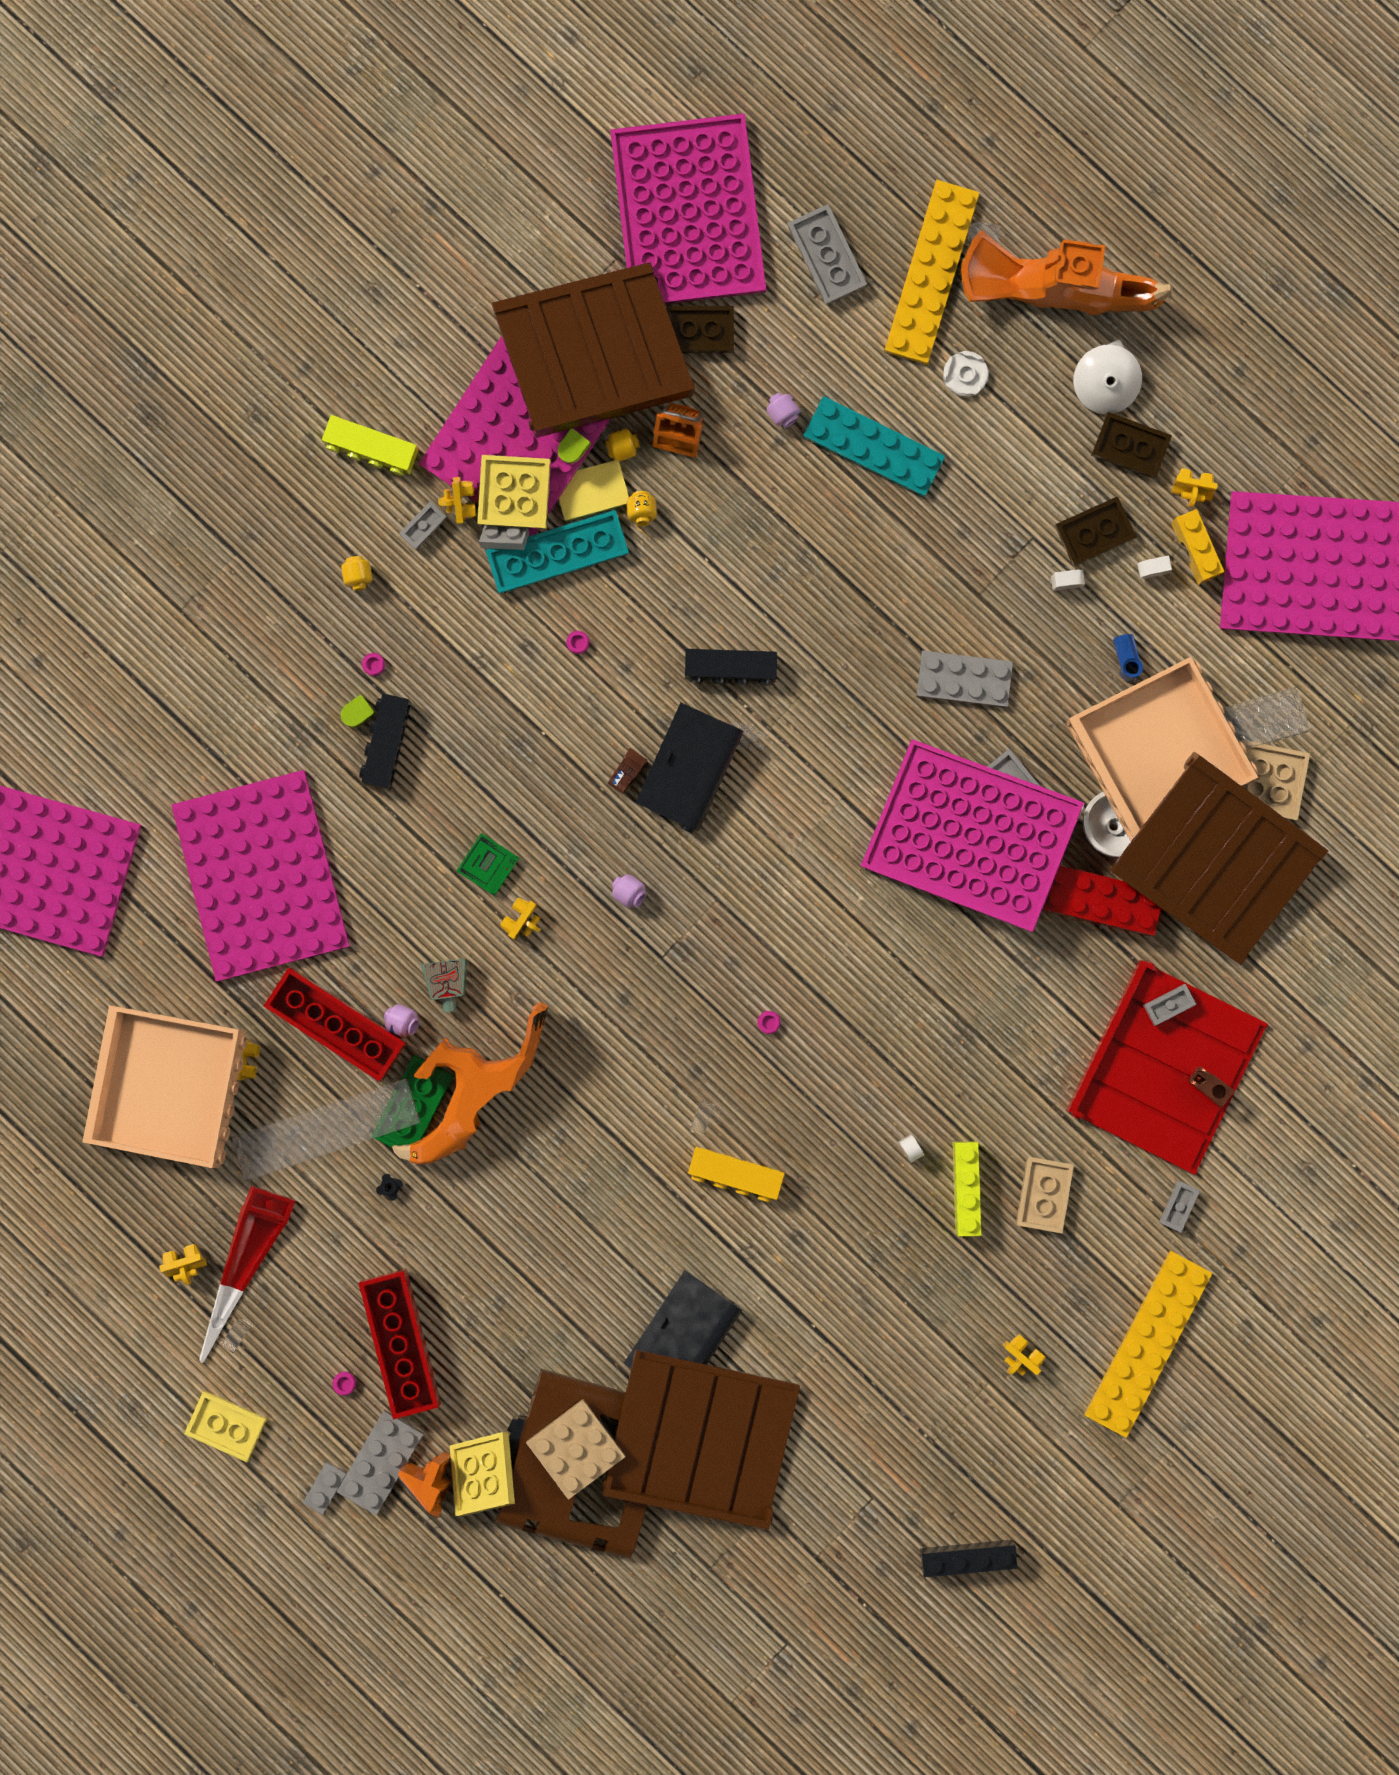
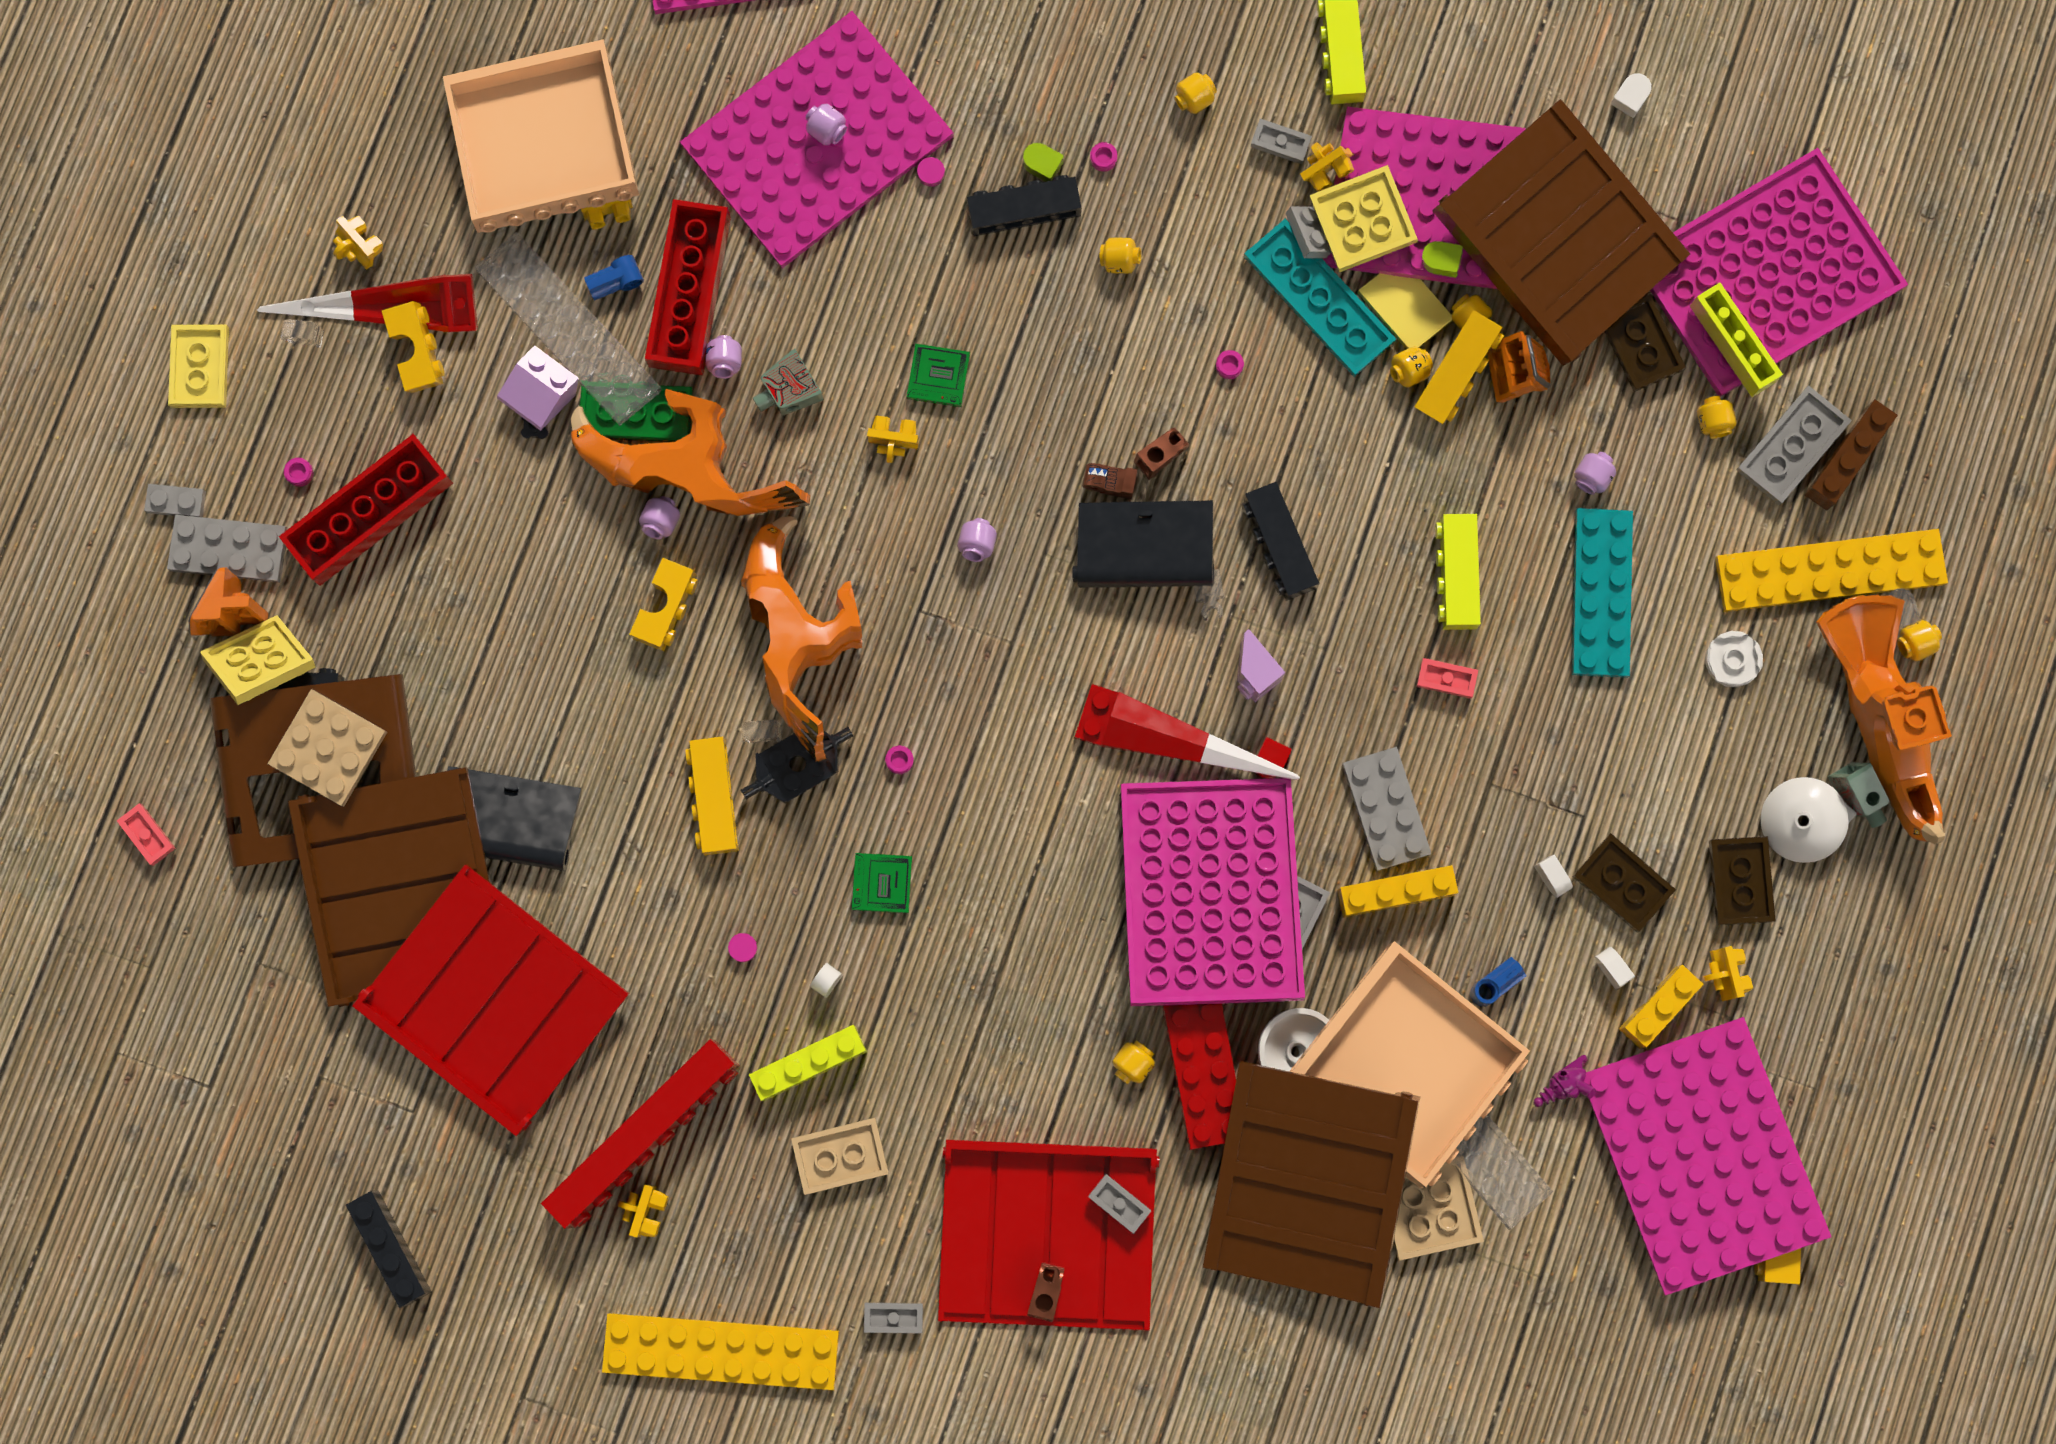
camera: 60 degrees right, 5 degrees down
(256, 864) = (826, 124): none -> lavender head
(268, 1248) = (423, 368): none -> yellow arch
(301, 1072) = (620, 275): none -> blue piece
(326, 800) = (931, 171): none -> dark pink tile
(363, 1172) = (538, 388): none -> lavender slope
(457, 686) = (1119, 255): none -> yellow head
(504, 1122) = (659, 517): none -> lavender head
(506, 246) = (1632, 94): none -> white piece
(561, 1131) = (657, 628): none -> yellow arch
(575, 1614) = (146, 834): none -> coral plate
(623, 724) = (1160, 453): none -> copper leg
(643, 1060) = (794, 634): none -> orange animal
(660, 474) = (1458, 368): none -> yellow brick
(732, 259) = (1736, 340): none -> neon yellow brick
(744, 1118) = (784, 784): none -> black plate
(781, 301) = (1716, 417): none -> yellow head
(812, 544) = (1458, 571): none -> neon yellow brick
(817, 1405) = (491, 1000): none -> red container
(820, 727) = (1257, 669): none -> lavender slope
(820, 838) = (1129, 725): none -> red plate
(853, 216) = (1850, 455): none -> reddish brown brick
(855, 1075) = (882, 883): none -> tile
(858, 1200) = (742, 947): none -> dark pink tile
(887, 590) = (1447, 678): none -> coral plate
(890, 747) = (1274, 753): none -> red piece
(967, 1335) = (640, 1134): none -> red brick
(1013, 233) = (1919, 640): none -> yellow head
(1030, 699) = (1397, 891): none -> yellow brick
(1070, 948) = (1133, 1062): none -> yellow head
(1105, 328) = (1861, 791): none -> sand green torso
(1222, 640) = (1567, 1084): none -> magenta piece

